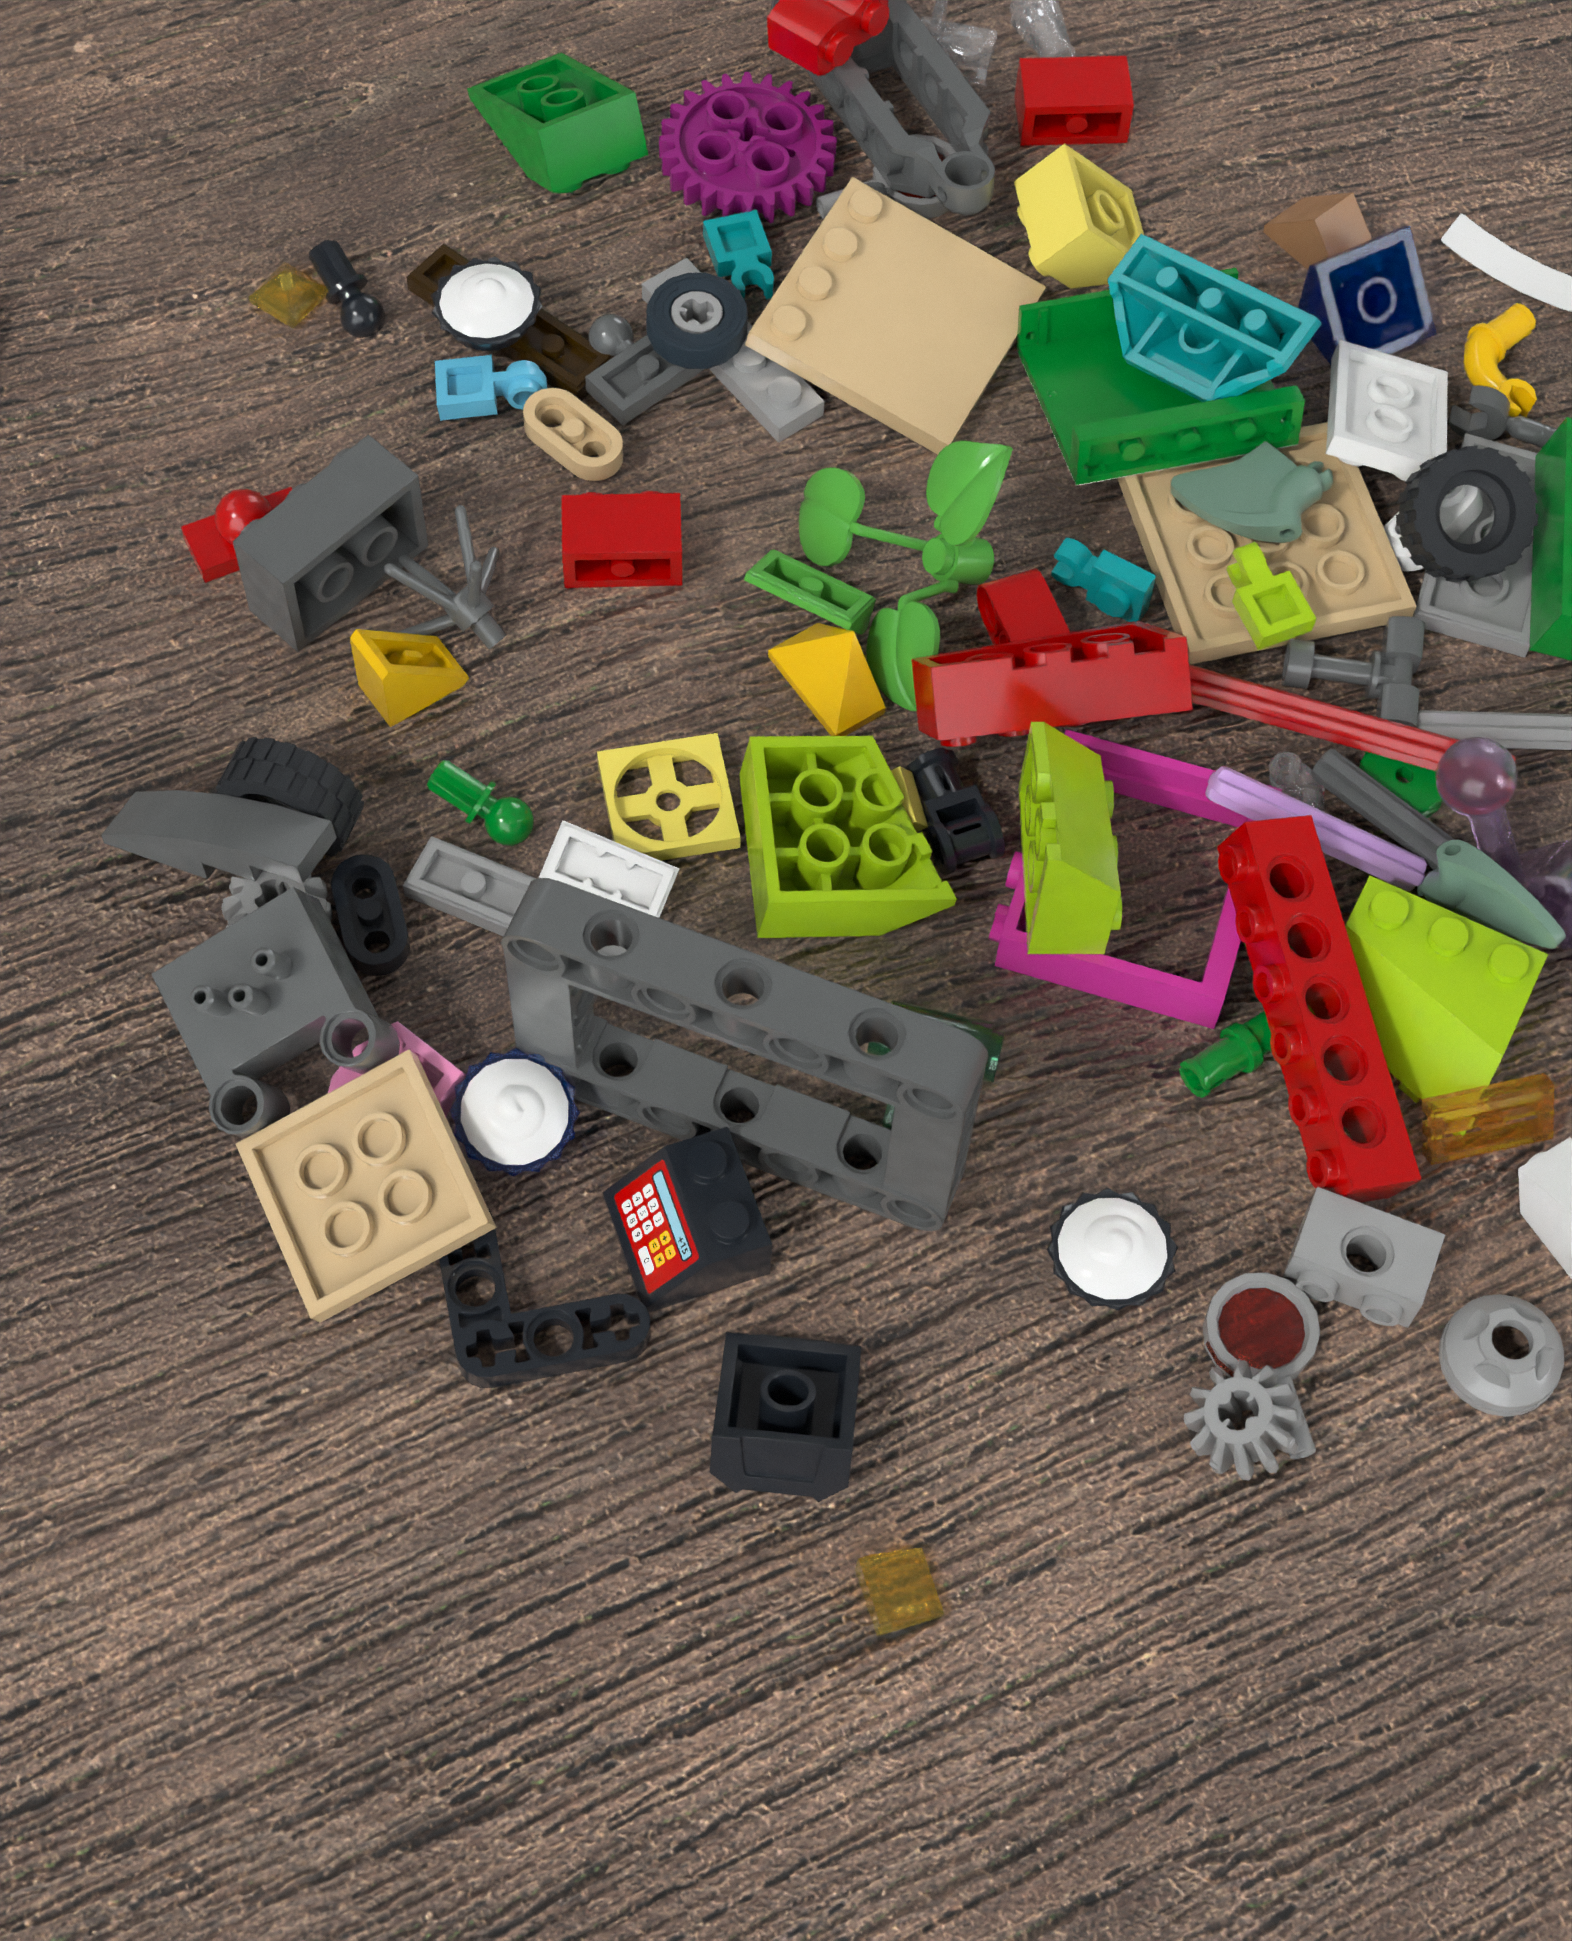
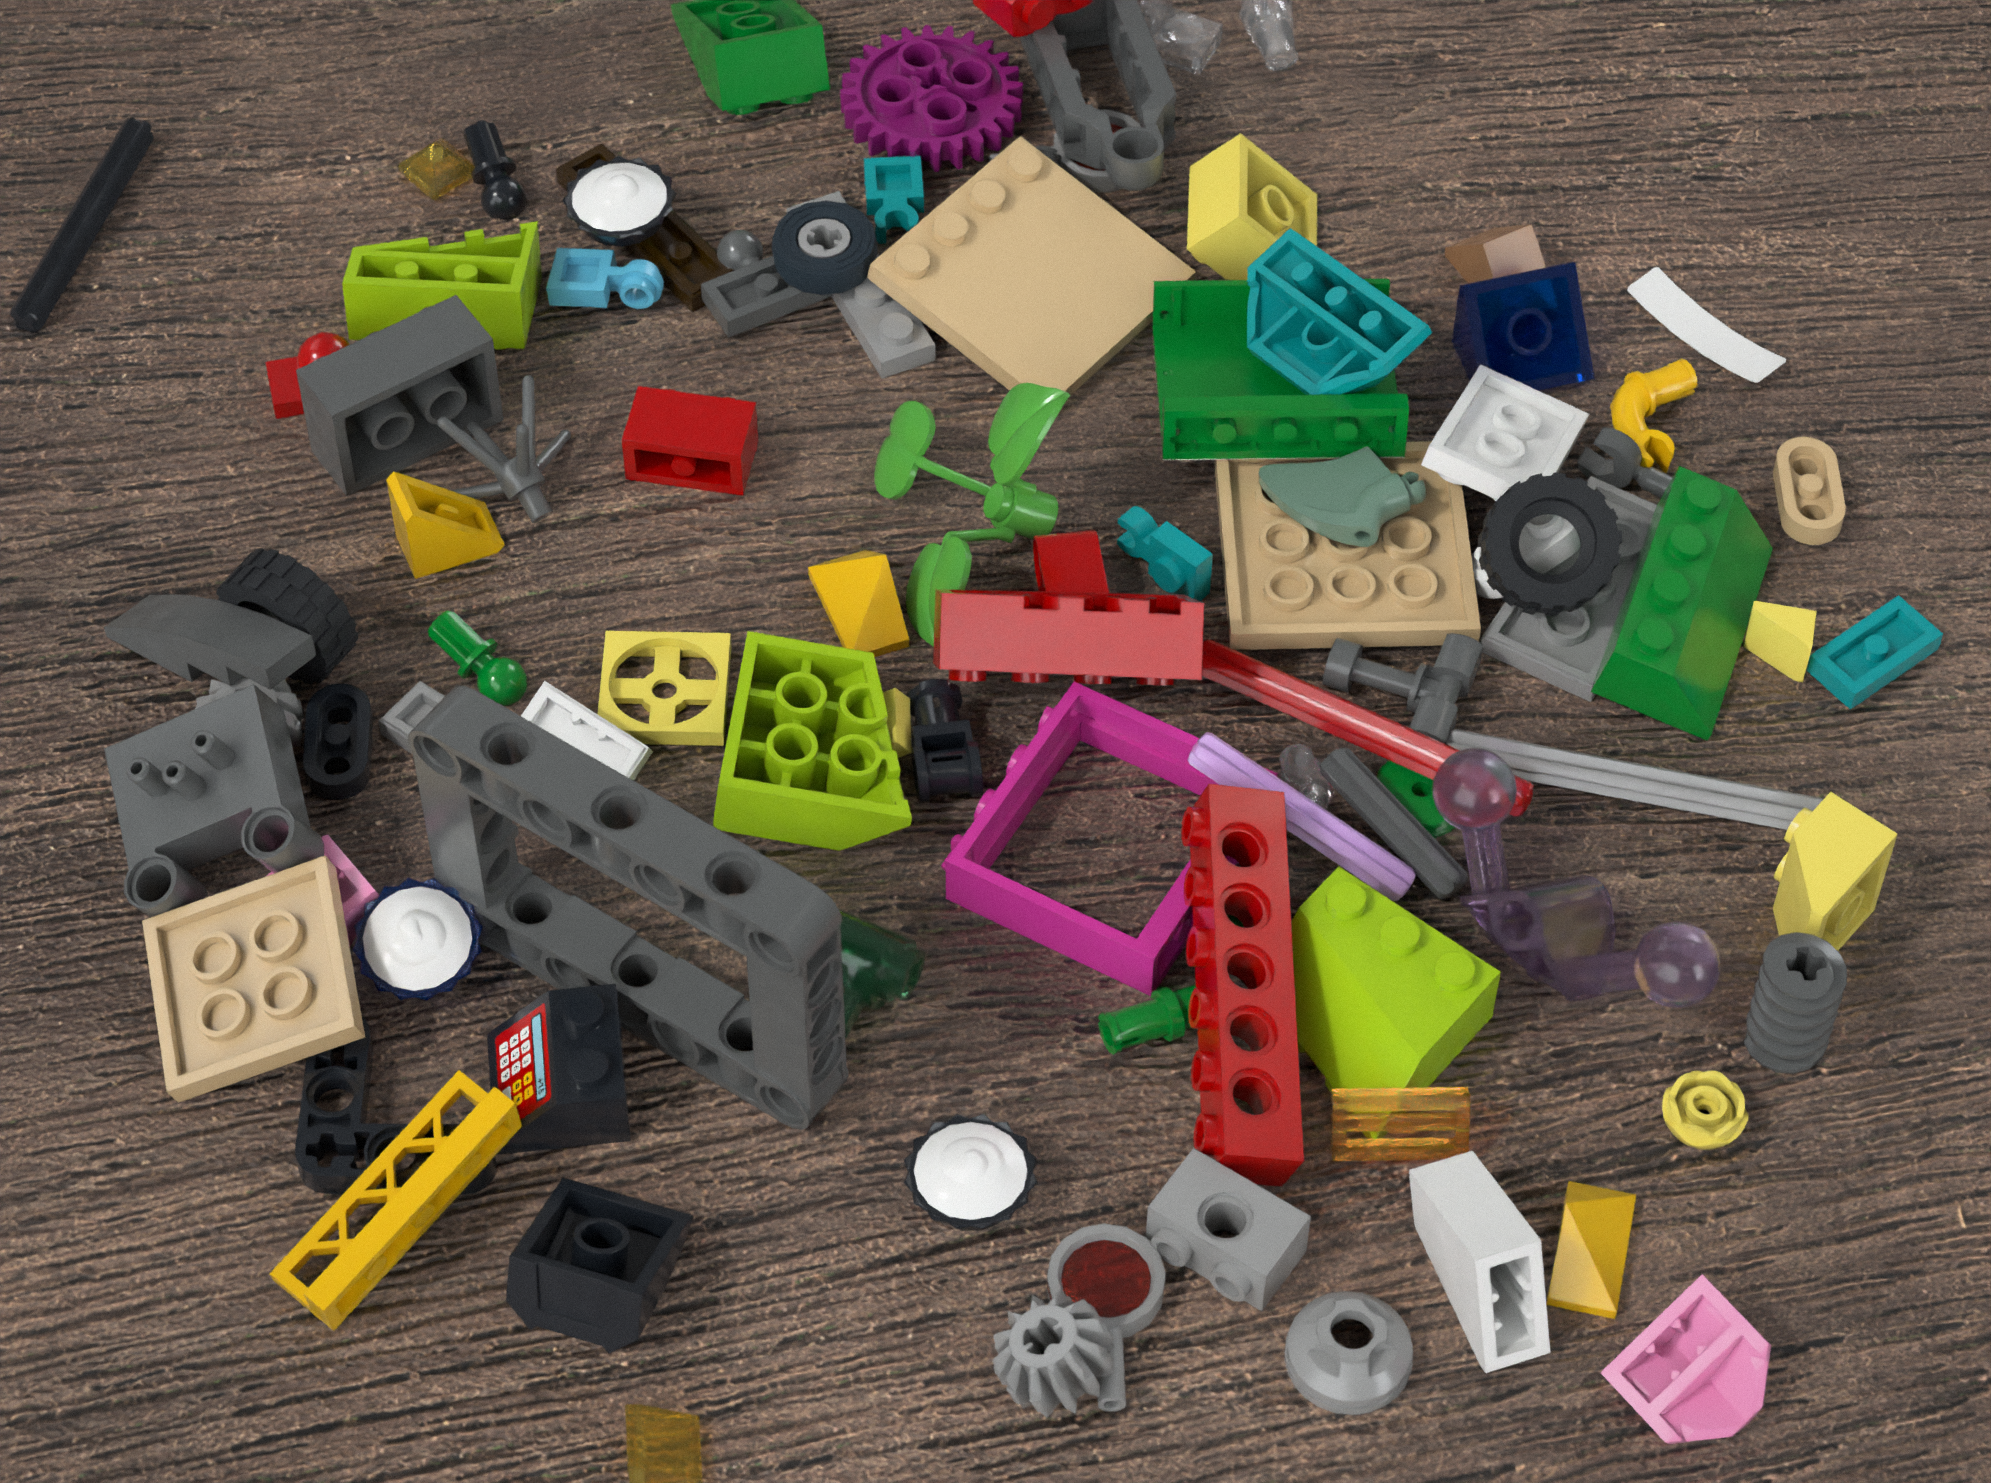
camera: 15 degrees right, 10 degrees down
(306, 423) = (490, 275): none -> lime wedge
(578, 436) = (683, 345): tan plate -> none
(594, 1398) = (408, 1208): none -> yellow fence
(813, 591) = (864, 516): bright green slope -> none
(1067, 846) = (1025, 777): lime wedge -> none
(1073, 100) = (1278, 100): red brick -> none
(1267, 604) = (1320, 599): lime plate -> none
(1487, 894) = (1454, 906): sand green arm -> none

